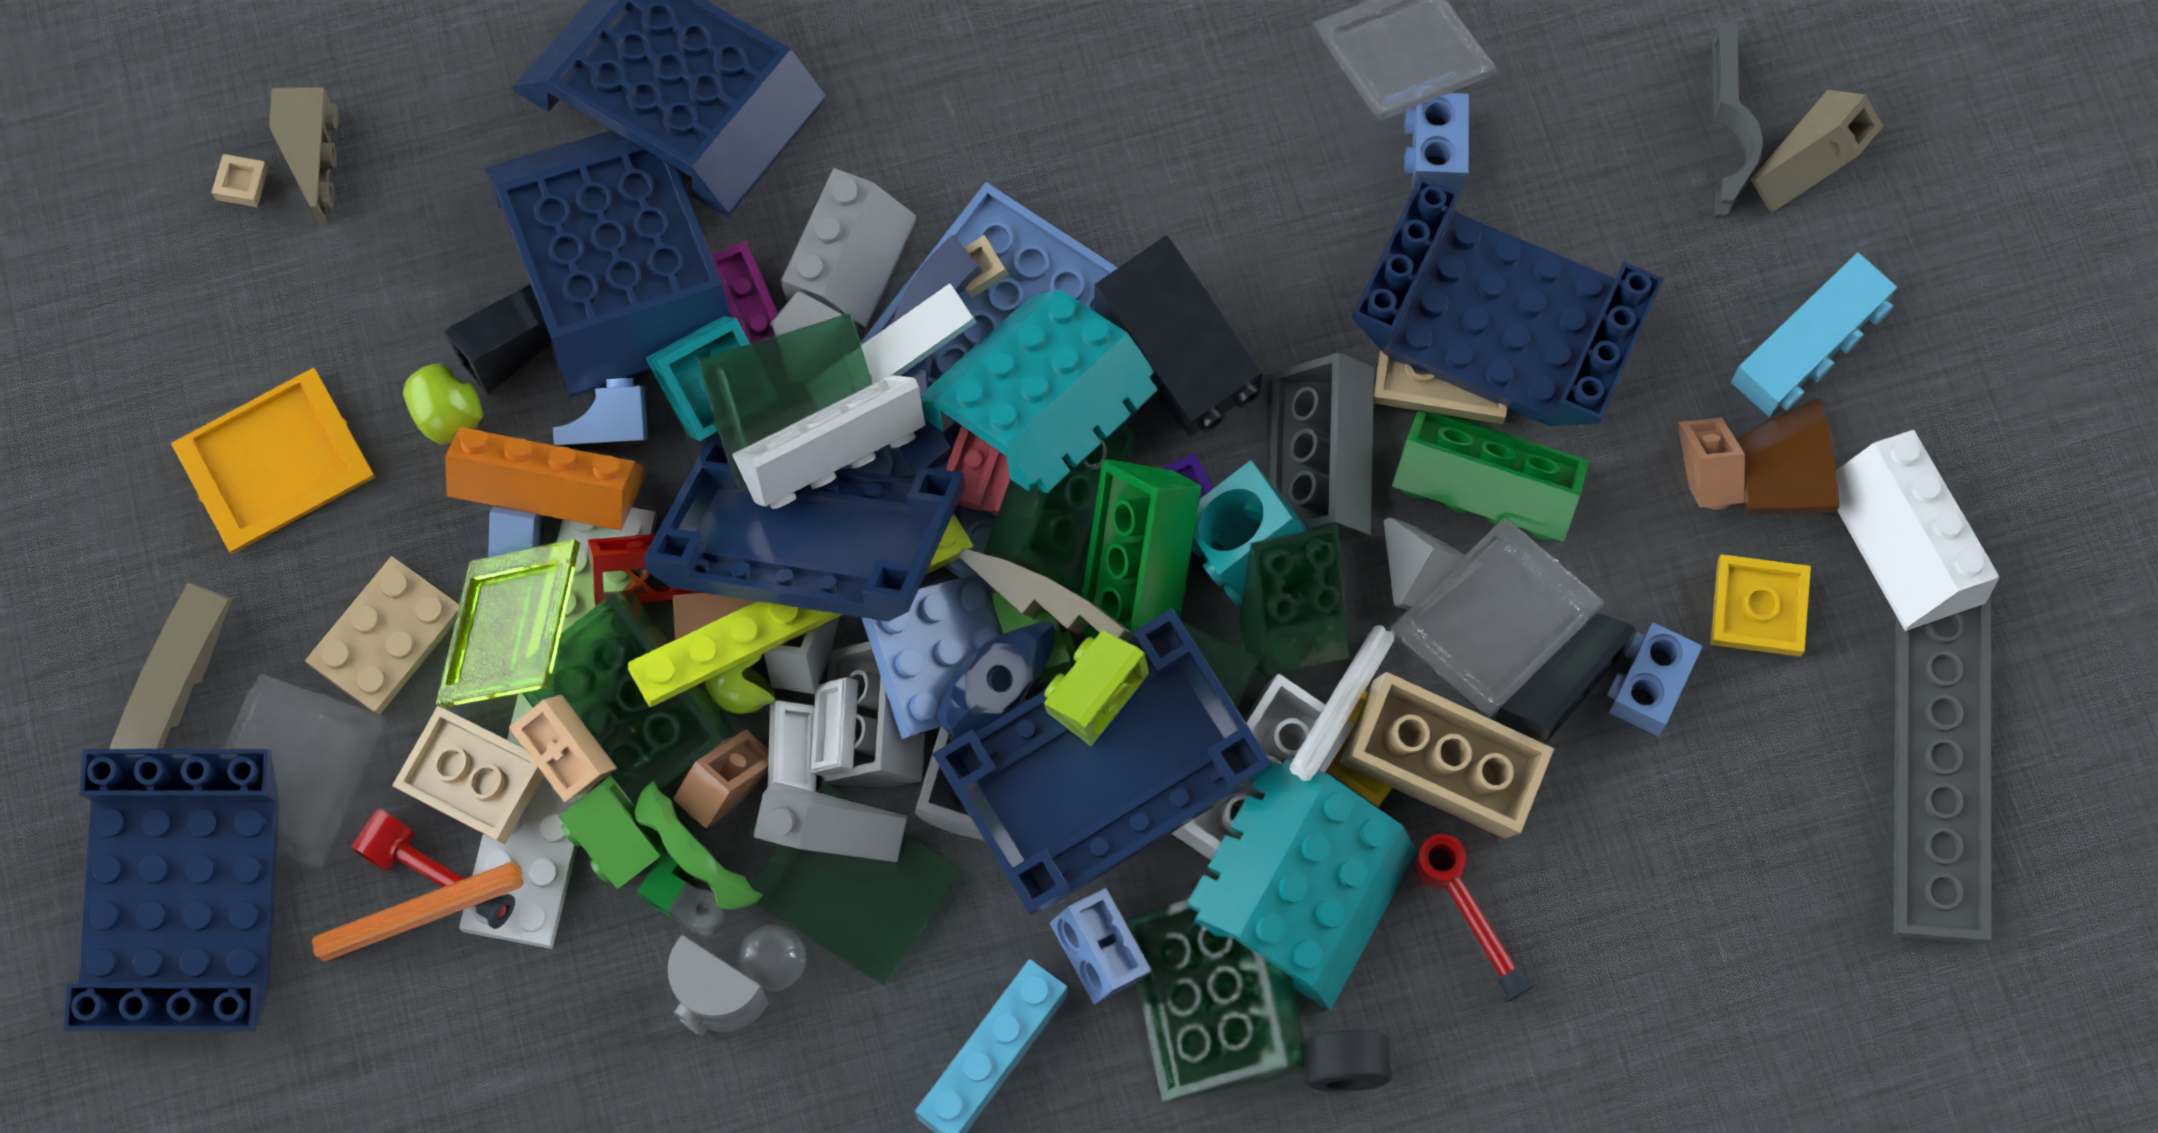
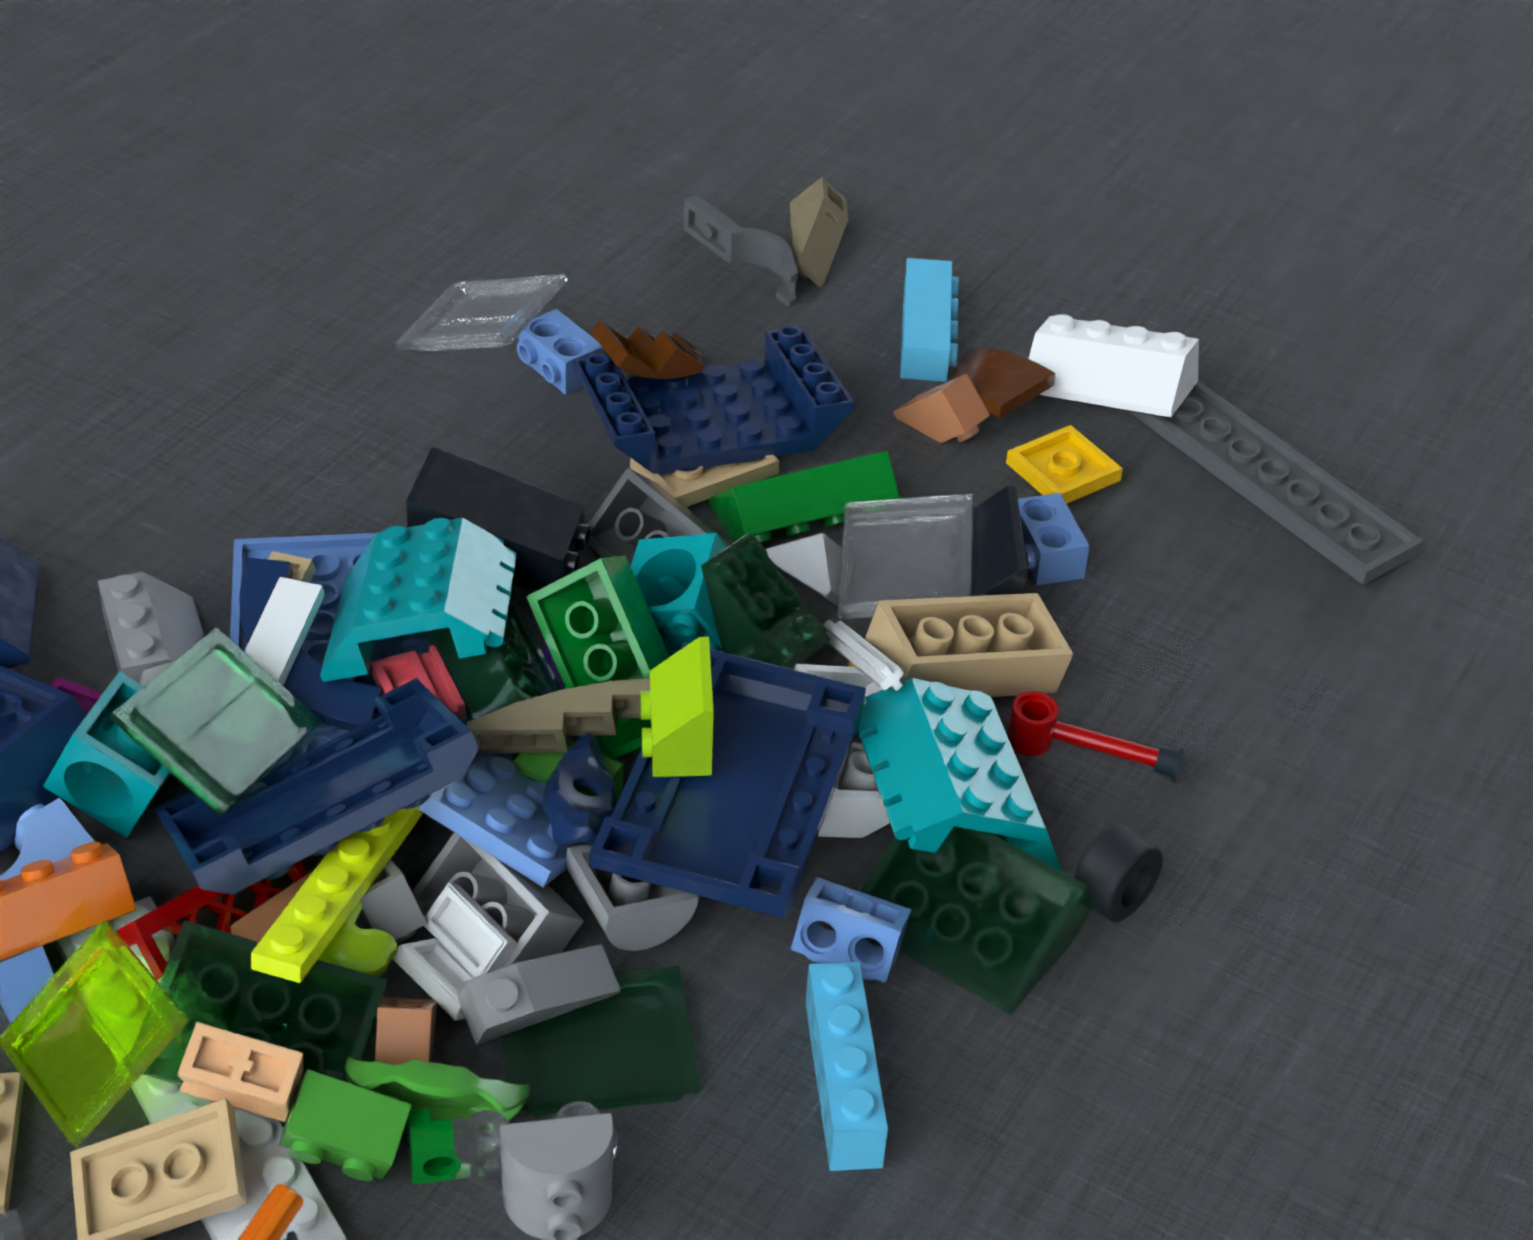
camera: 45 degrees left, 30 degrees down
(830, 440) = (282, 714): white slope -> none
(1501, 213) = (650, 356): none -> reddish brown slope

